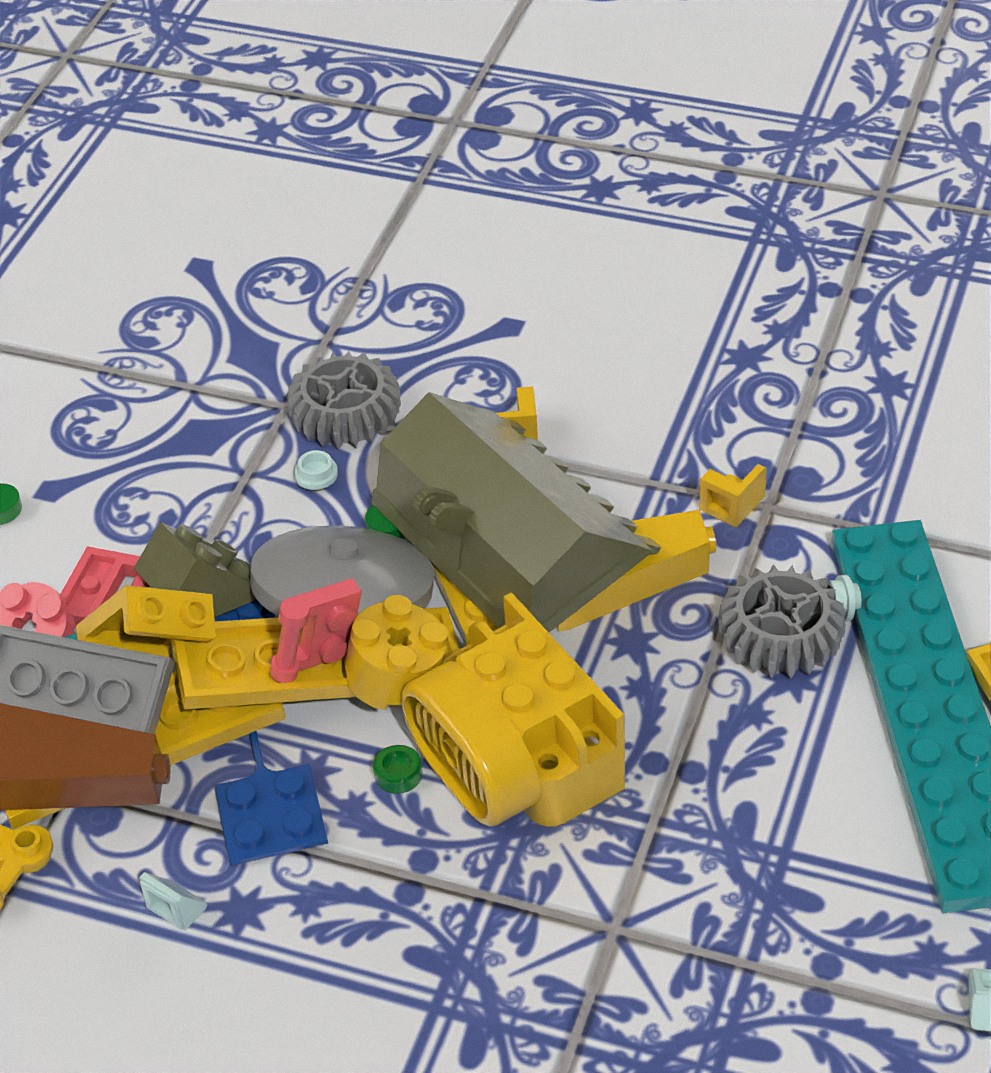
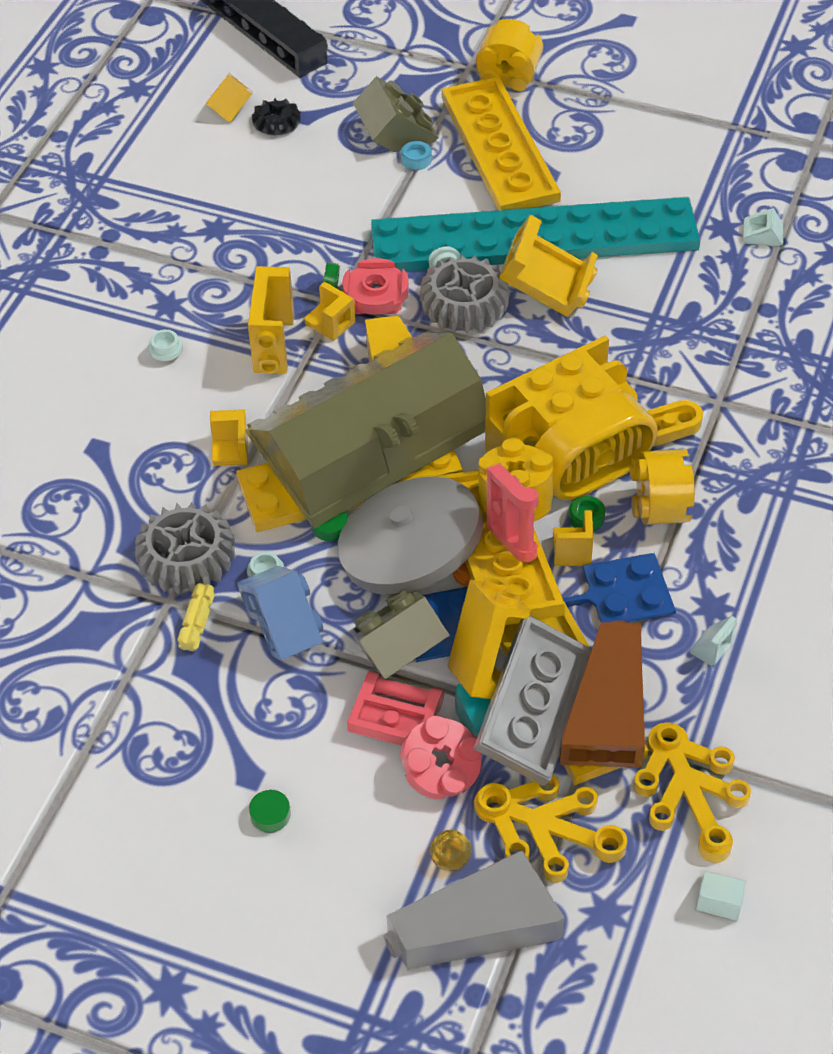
camera: 90 degrees left, 5 degrees up
(234, 465) = (281, 607): none -> medium blue brick
(254, 423) = (196, 617): none -> light yellow axle
(339, 751) = (574, 545): none -> yellow panel
(407, 825) = (662, 486): none -> yellow brick
(555, 858) = (670, 419): none -> yellow plate
(664, 354) = (165, 345): none -> light aqua plate
(688, 418) = (269, 312): none -> yellow panel
(793, 486) = (331, 274): none -> green tile
(805, 550) = (369, 300): none -> coral plate
(829, 698) = (547, 270): none -> yellow panel

